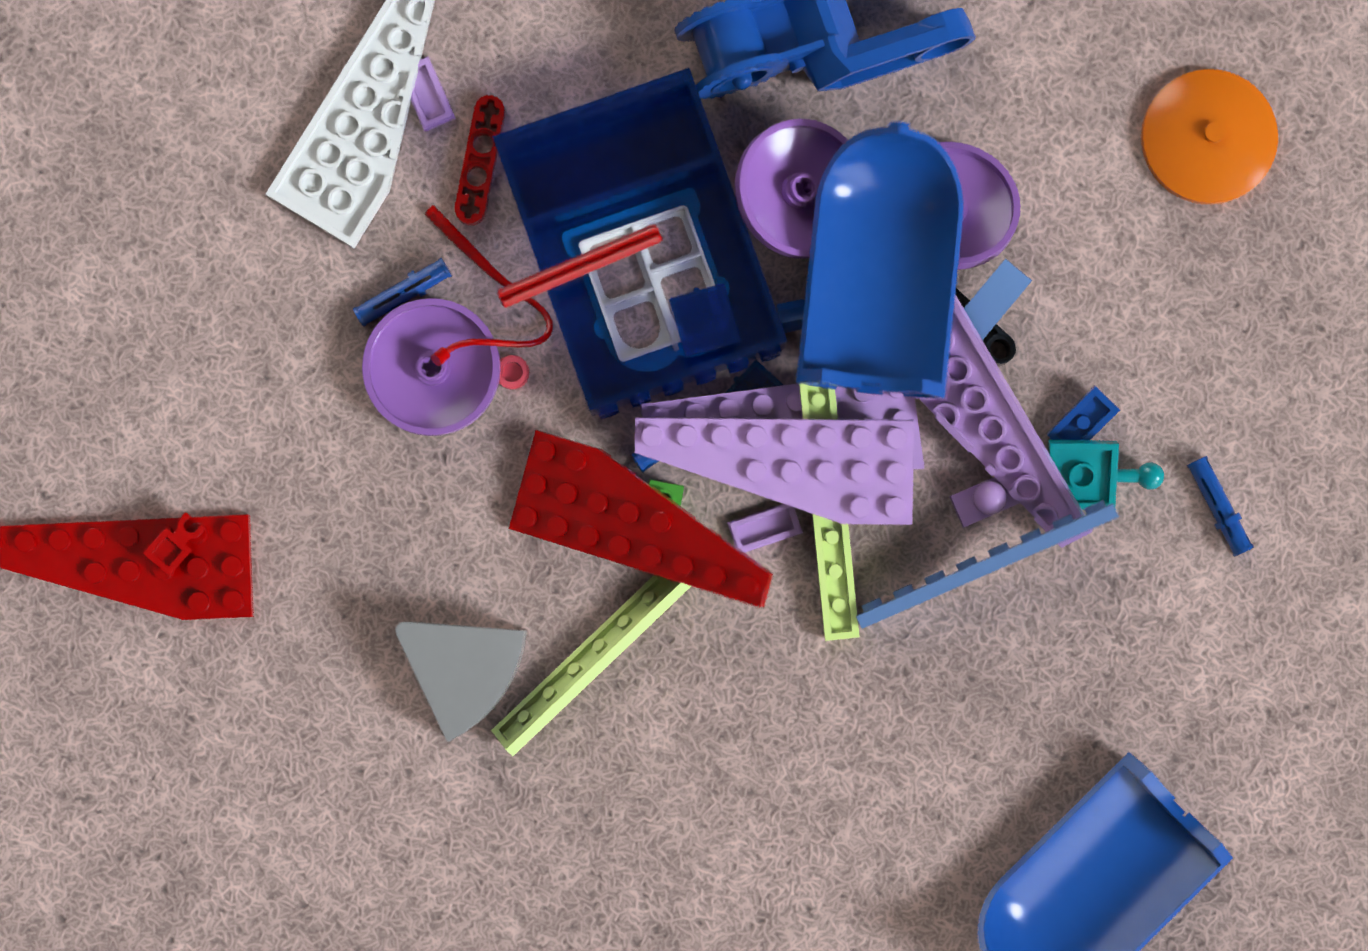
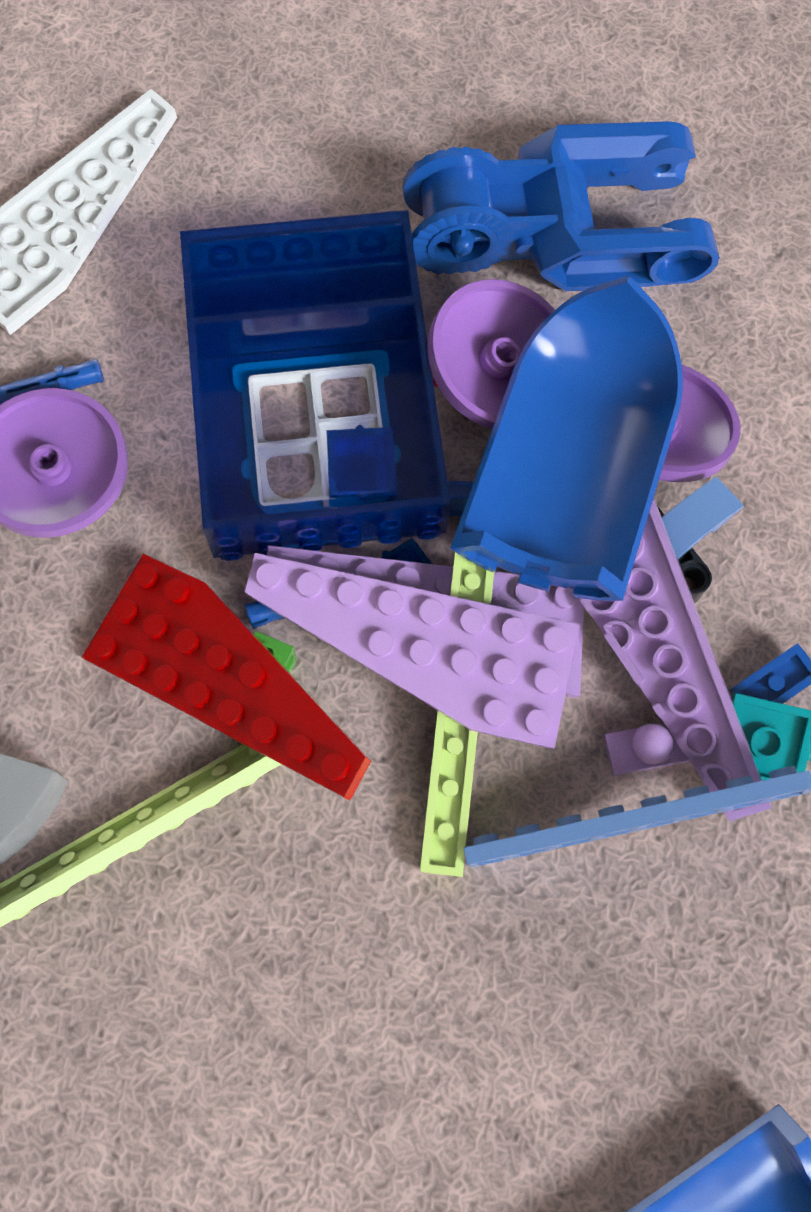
camera: 10 degrees right, 15 degrees down
(430, 98) = (136, 213): lavender tile -> none
(470, 251) = (62, 446): red piece -> none
(474, 160) = (160, 278): red beam -> none
(513, 372) = (139, 492): coral tile -> none
(579, 265) = (234, 371): red axle -> none
(764, 527) = (381, 722): lavender tile -> none

